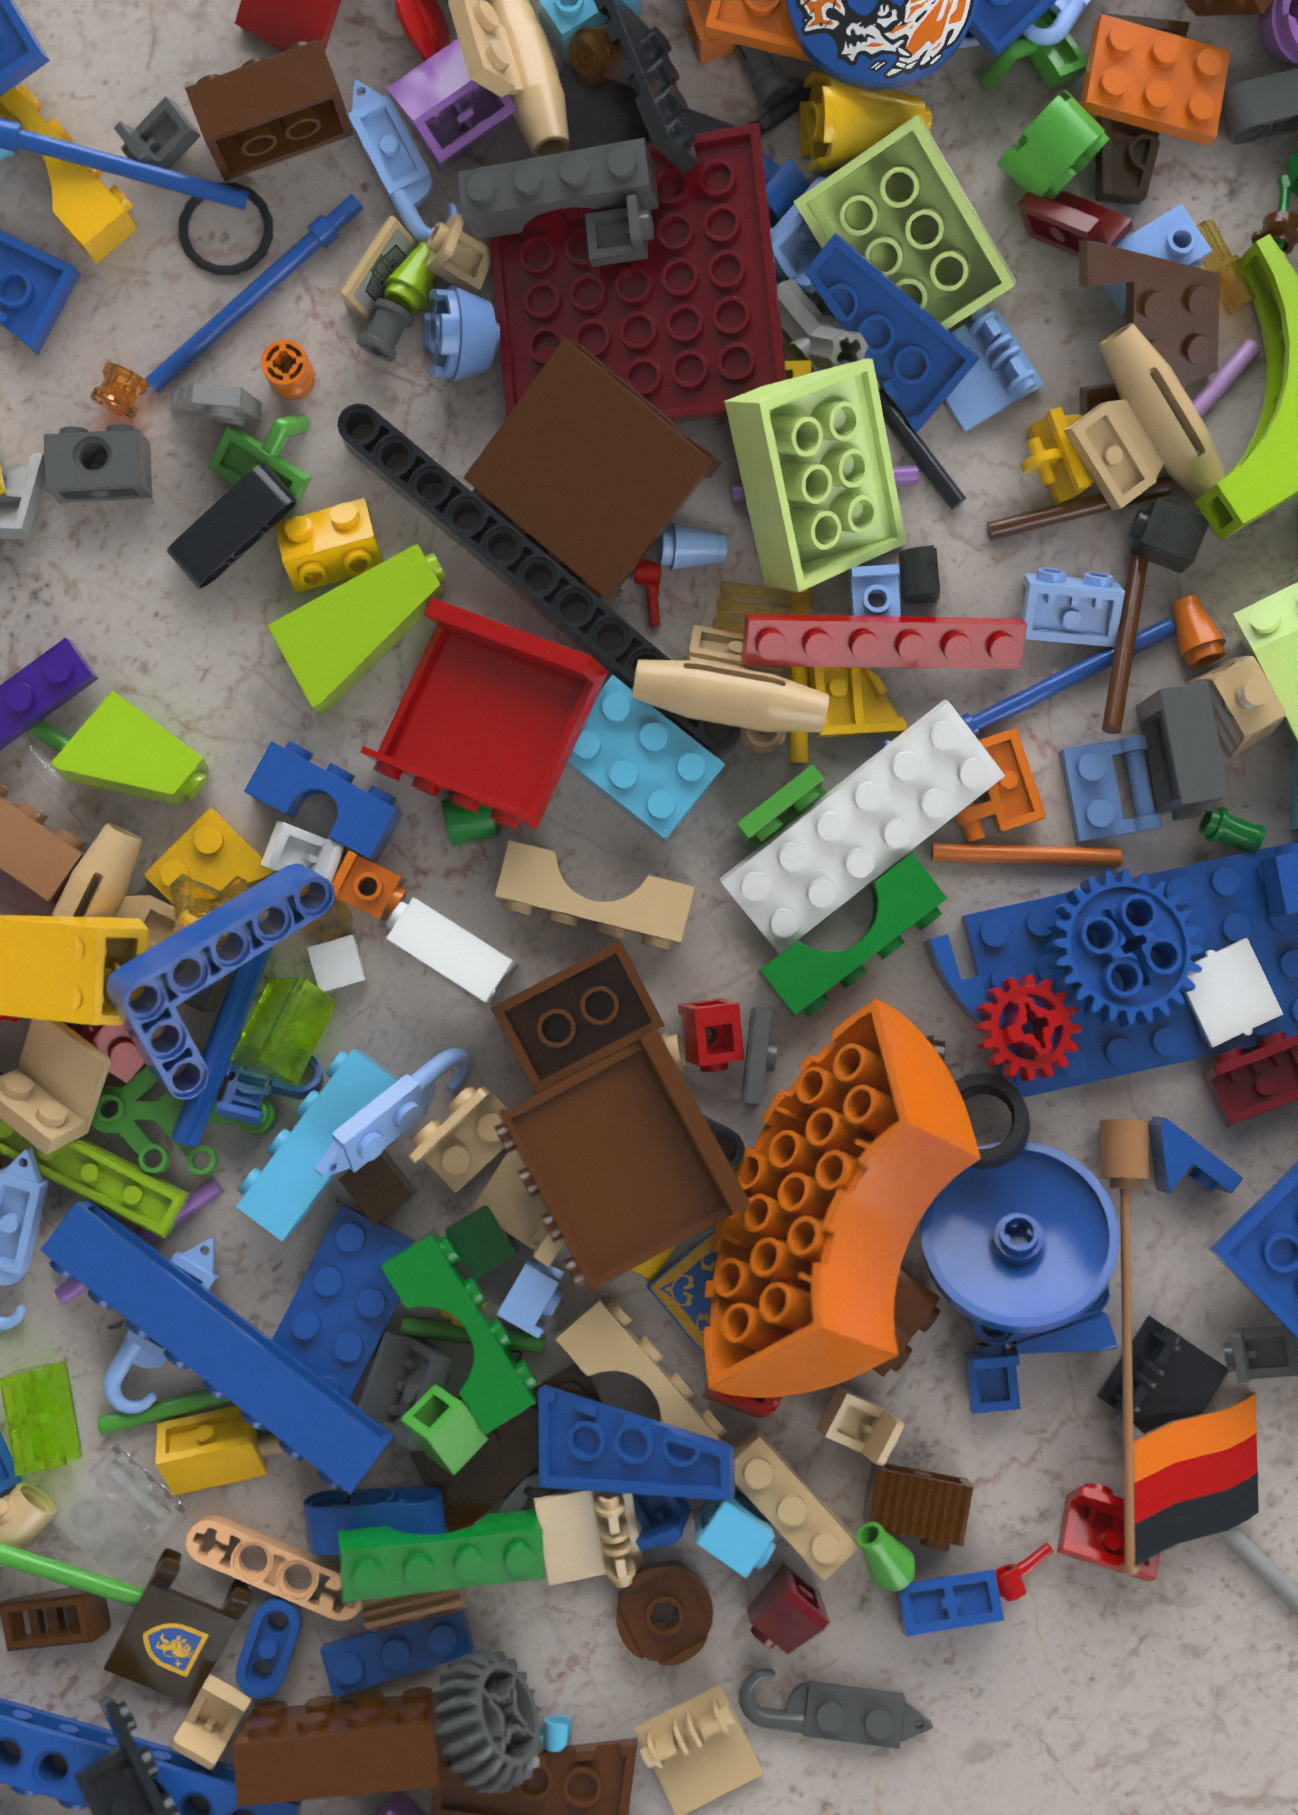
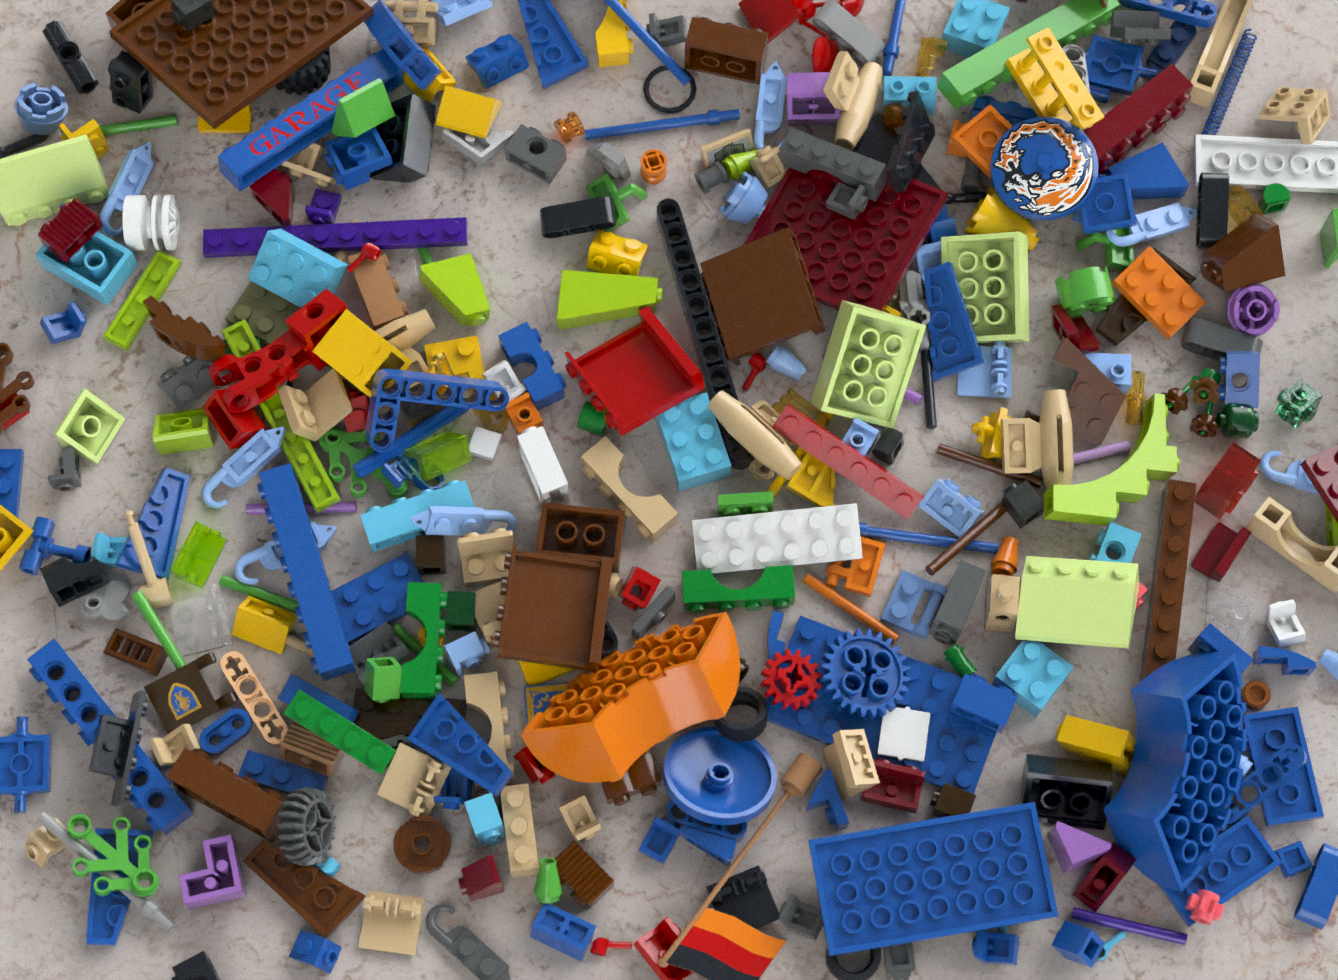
camera: 35 degrees right, 15 degrees down
(1192, 1092) = (851, 763): none -> tan bracket

